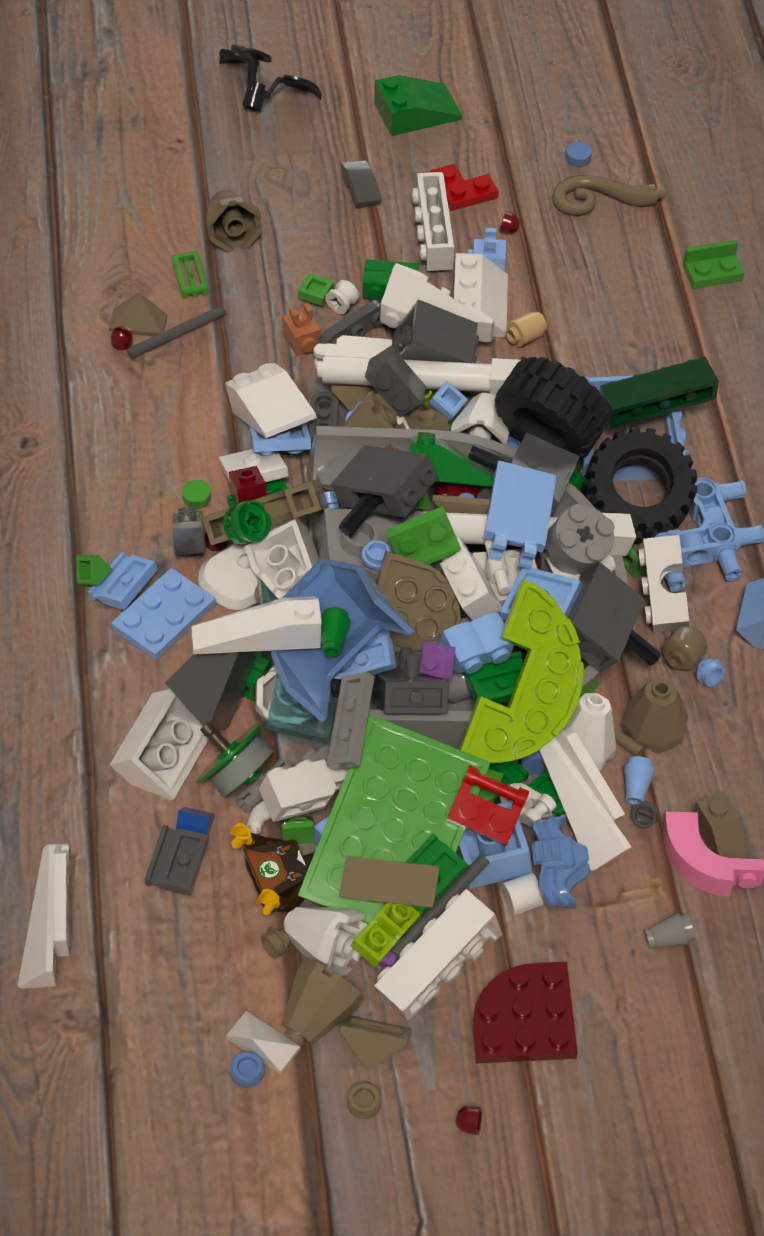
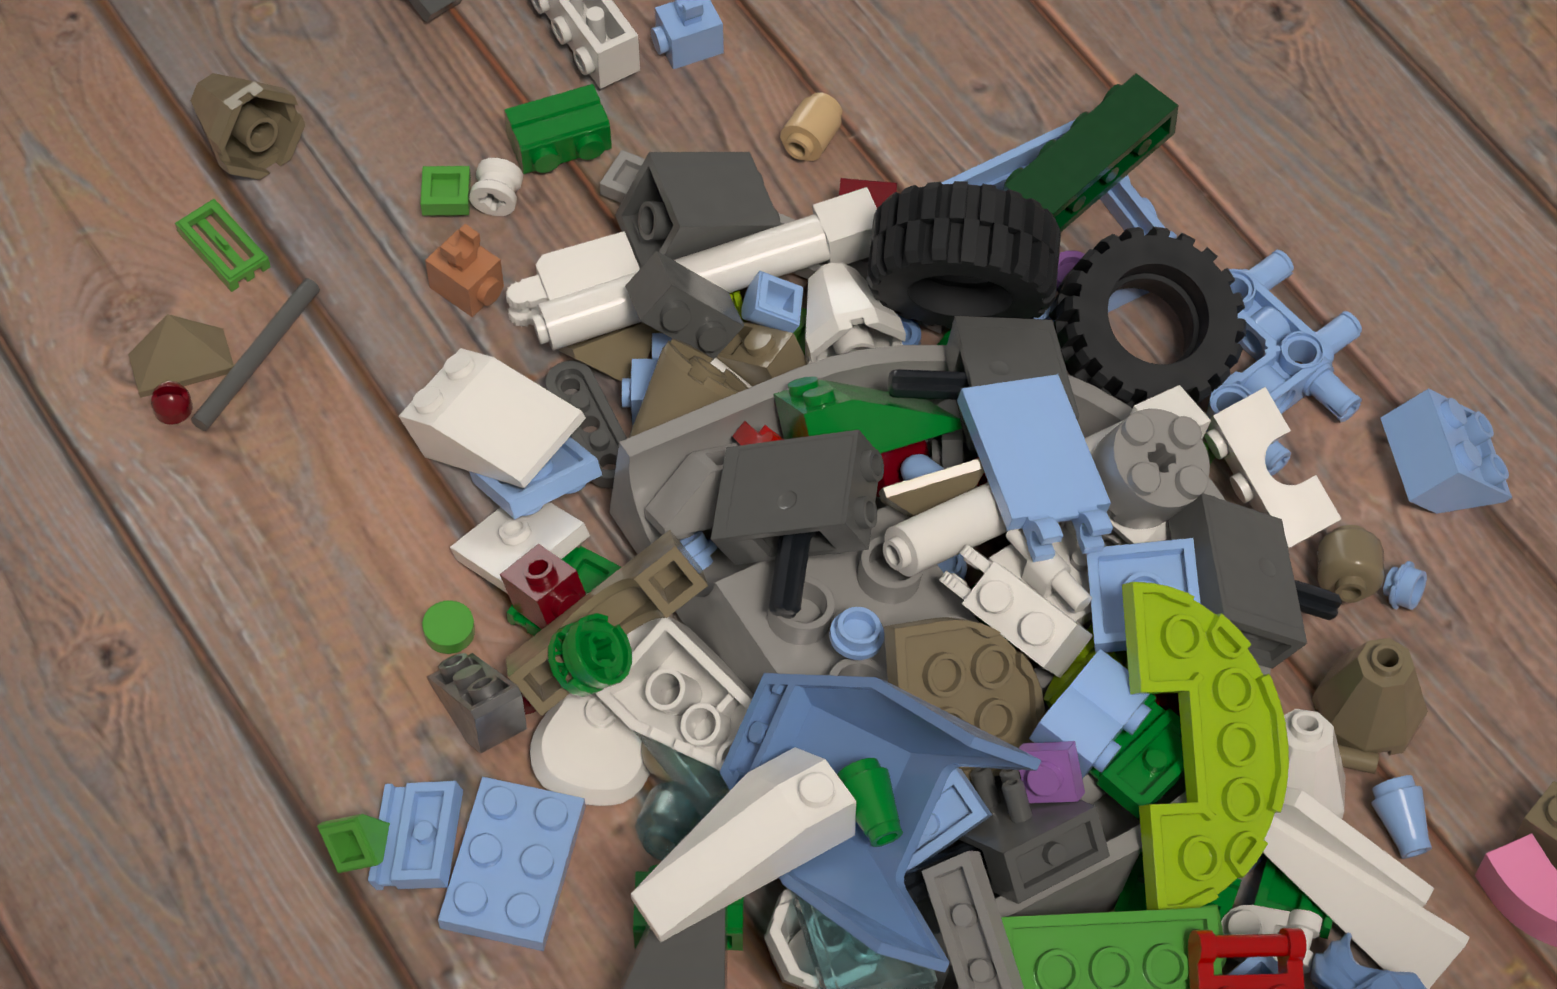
camera: 25 degrees left, 5 degrees up
(355, 324) = (546, 227): dark grey plate -> none
(409, 285) = (621, 136): white wedge -> none
(425, 537) = (925, 574): bright green bracket -> none
(482, 286) = (707, 97): white slope -> none
(644, 820) = (1444, 876): dark grey hinge -> none

